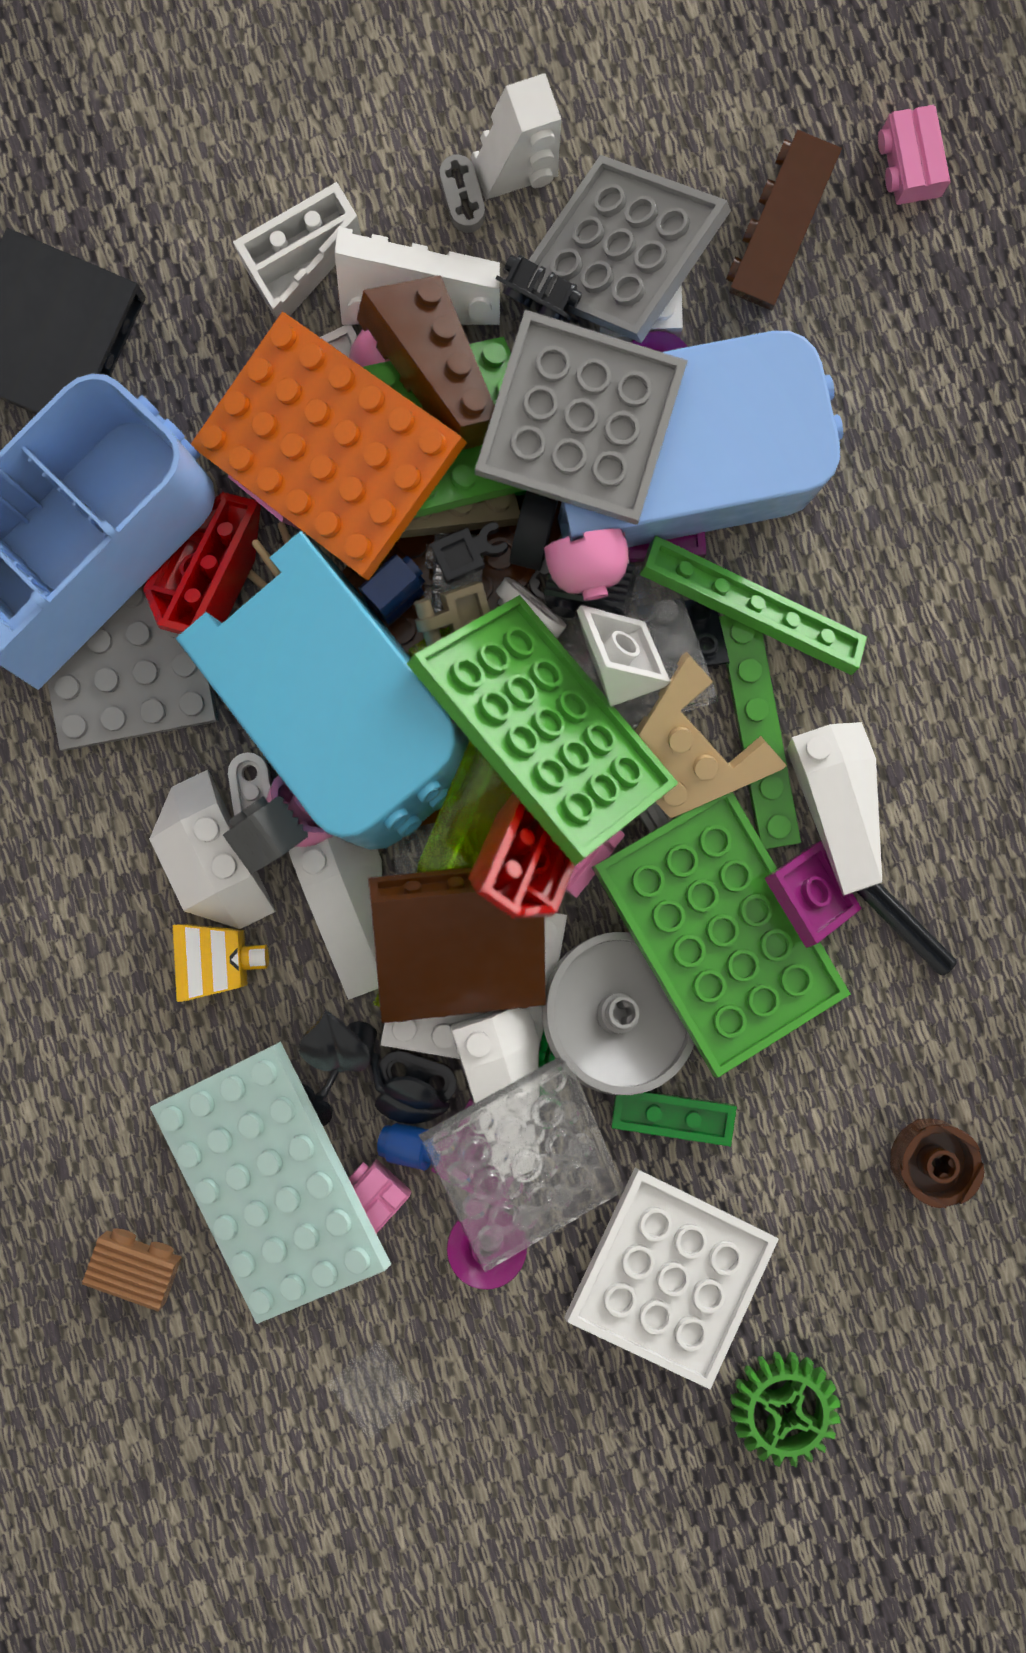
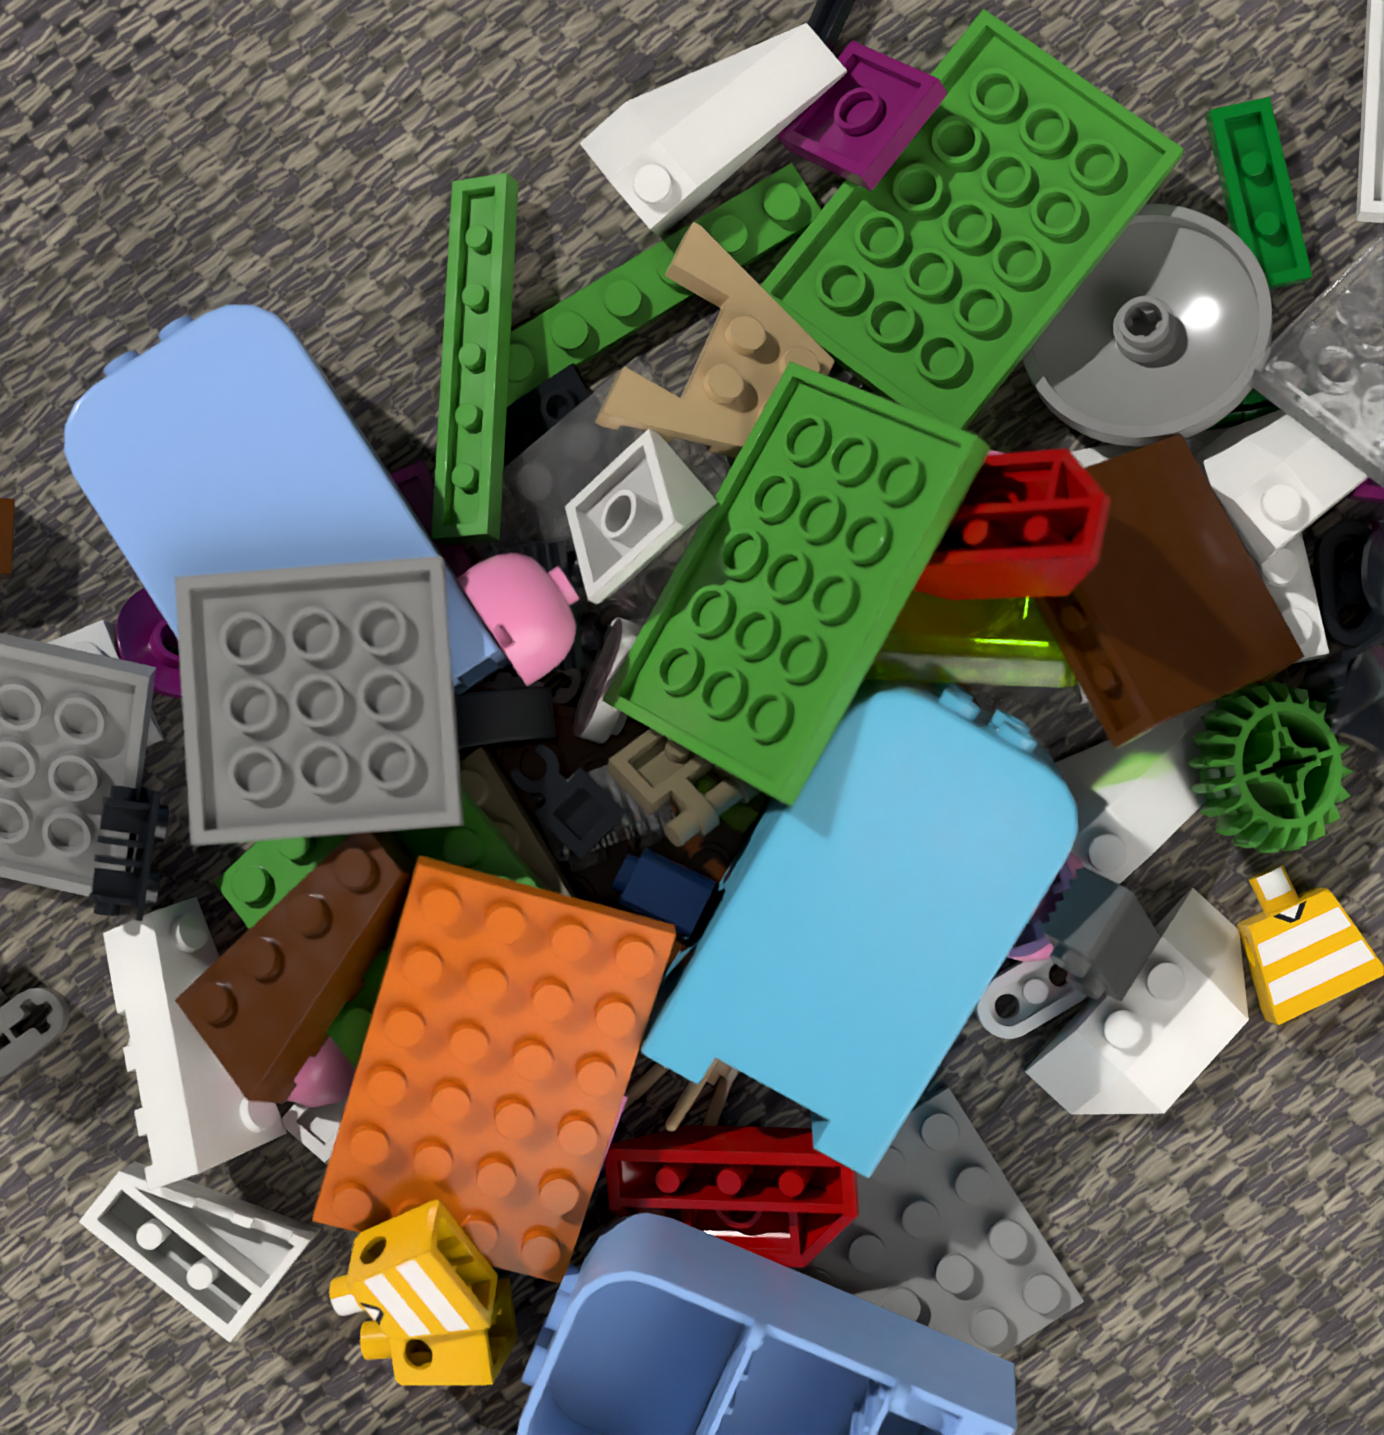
camera: 115 degrees left, 0 degrees up
(188, 371) = (453, 1357): none -> yellow torso
(224, 358) = (417, 1277): none -> yellow torso
(306, 989) = (1251, 734): none -> bright green gear

